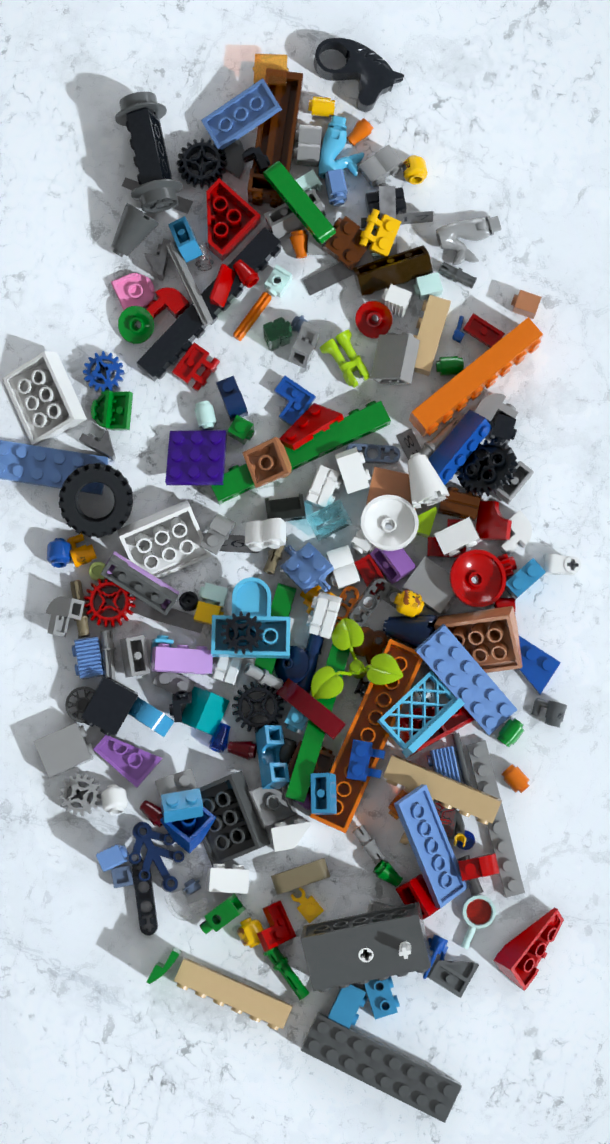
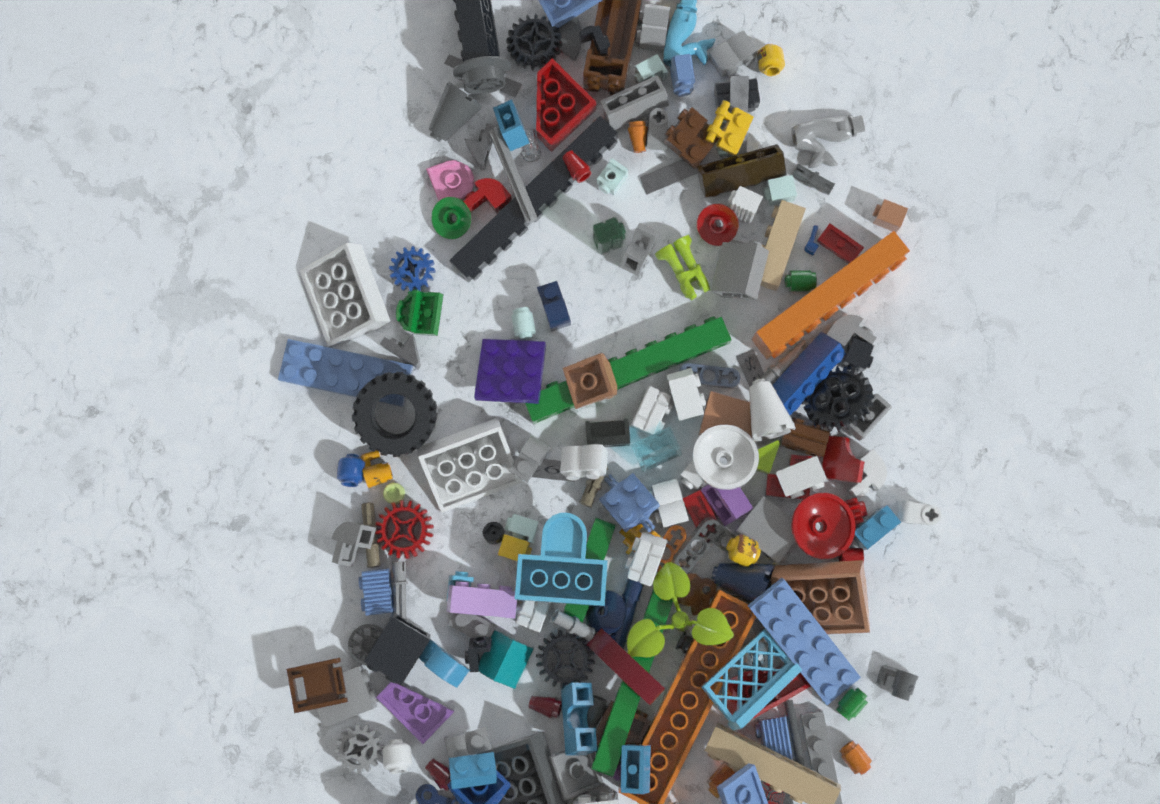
camera: 10 degrees right, 0 degrees up
(44, 738) = (321, 683): none -> reddish brown container
(134, 656) = (429, 593): light grey brick -> none
(140, 583) = (439, 511): dark grey piece -> none
(174, 616) = (466, 546): flat silver sticker -> none
(190, 364) = (510, 264): red plate -> none
(220, 738) = (521, 691): clear blue cone -> none
(222, 286) = (549, 179): red slope -> none
(235, 627) = (544, 570): black gear -> none
(241, 430) = (562, 341): green brick -> none
(252, 316) = (581, 214): orange axle -> none
(295, 720) = (606, 678): medium azure brick -> none
(297, 322) = (631, 225): sand blue plate -> none
(298, 400) = (628, 311): blue plate -> none
(299, 202) = (640, 89): green beam -> none
(310, 423) = (640, 338): red wing -> none
(359, 761) = (679, 729): blue plate -> none
(360, 131) = (713, 13): orange cone -> none
(408, 218) = (765, 113): flat silver sticker -> none
(537, 665) = (886, 627): blue wing -> none

